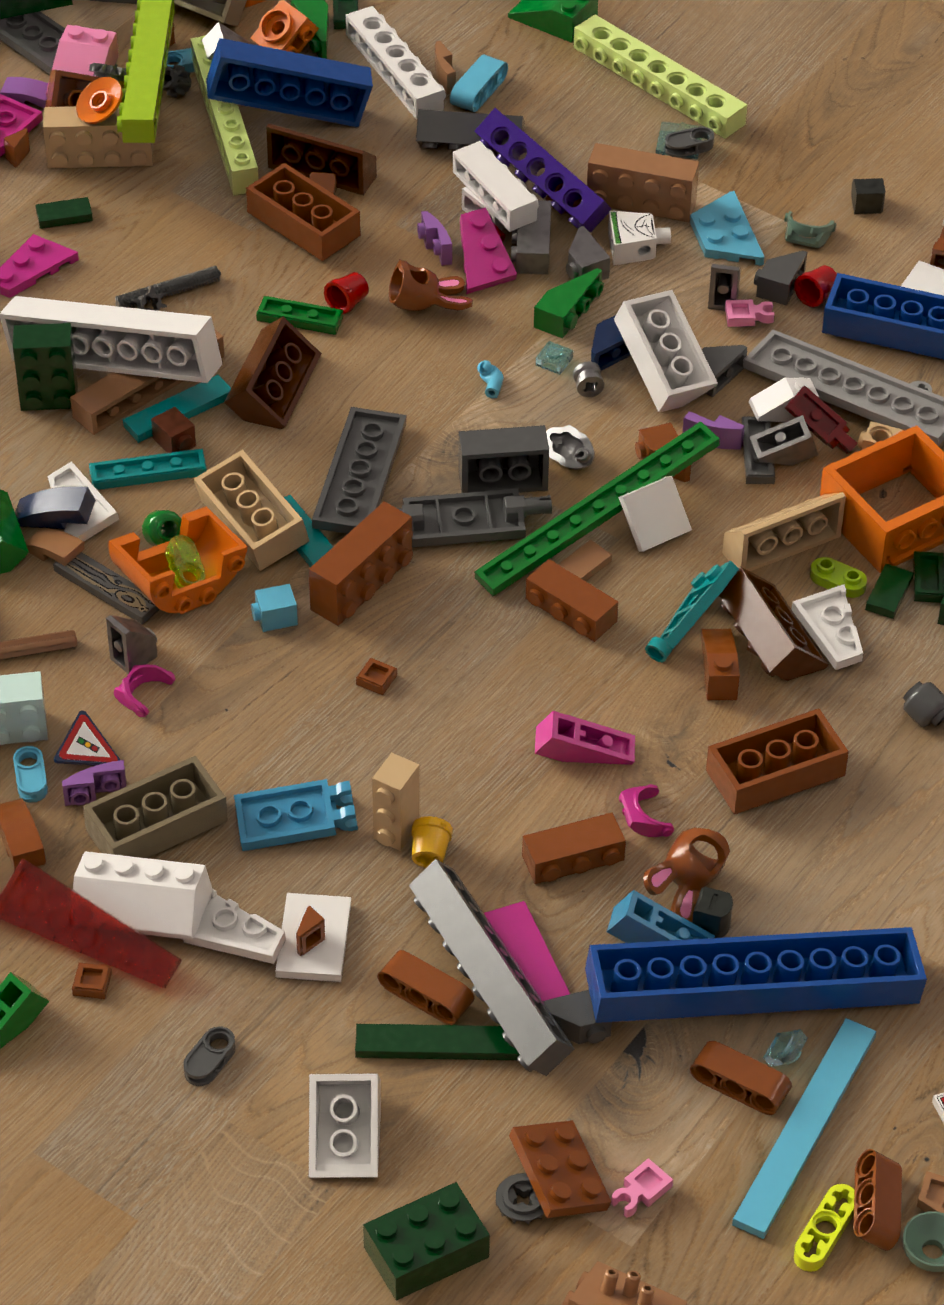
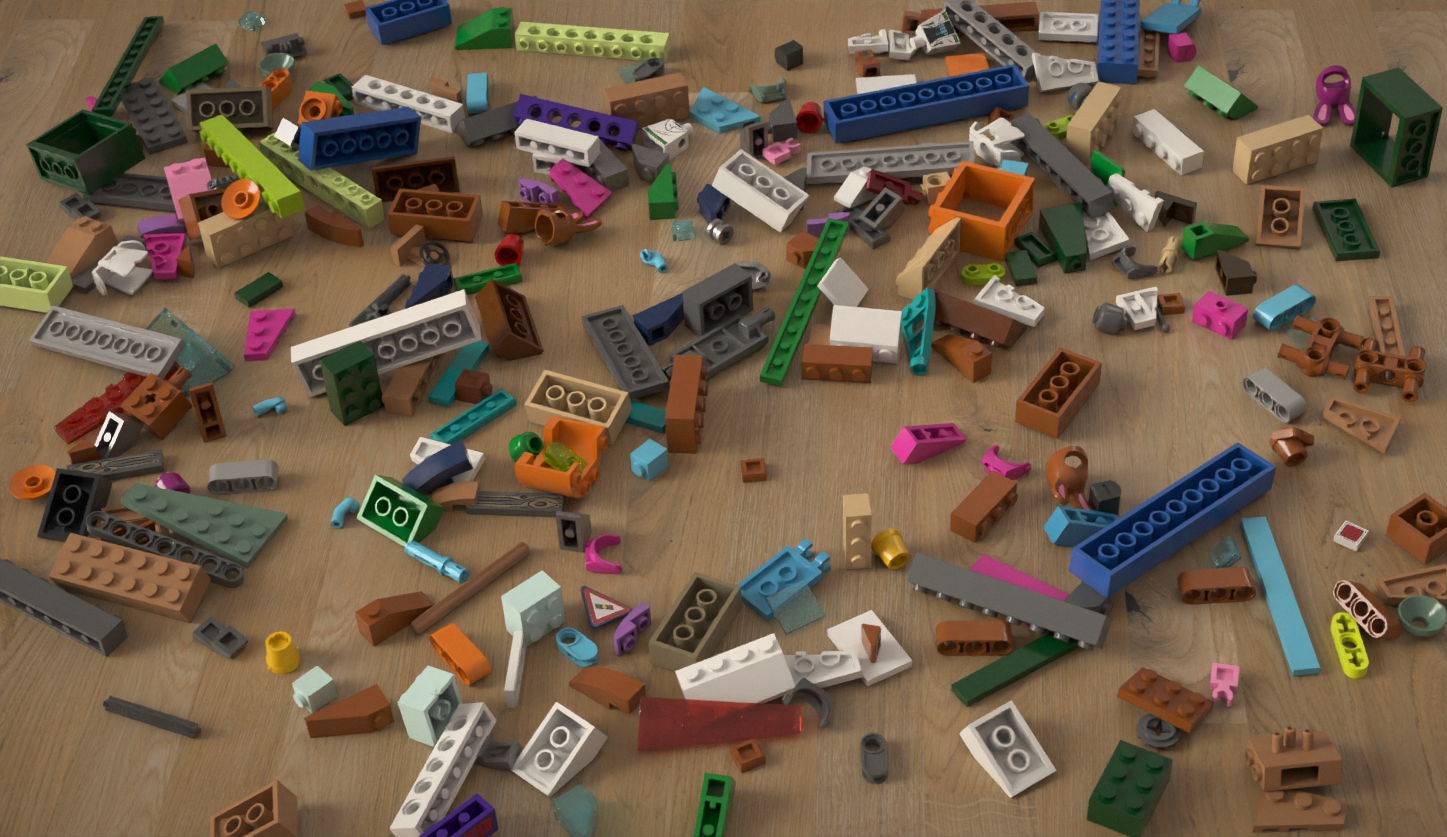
camera: 30 degrees left, 5 degrees down
(193, 174) = (333, 226): none -> dark orange slope
(203, 949) = (815, 696): none -> dark grey helmet
(229, 296) = (432, 284): none -> dark blue slope
(252, 241) = (414, 248): none -> medium nougat piece
(276, 850) = (795, 607): none -> clear light blue piece
(386, 250) = (521, 216): none -> dark orange slope
(427, 453) = (660, 320): none -> dark blue slope
(631, 579) = (868, 328): none -> white slope

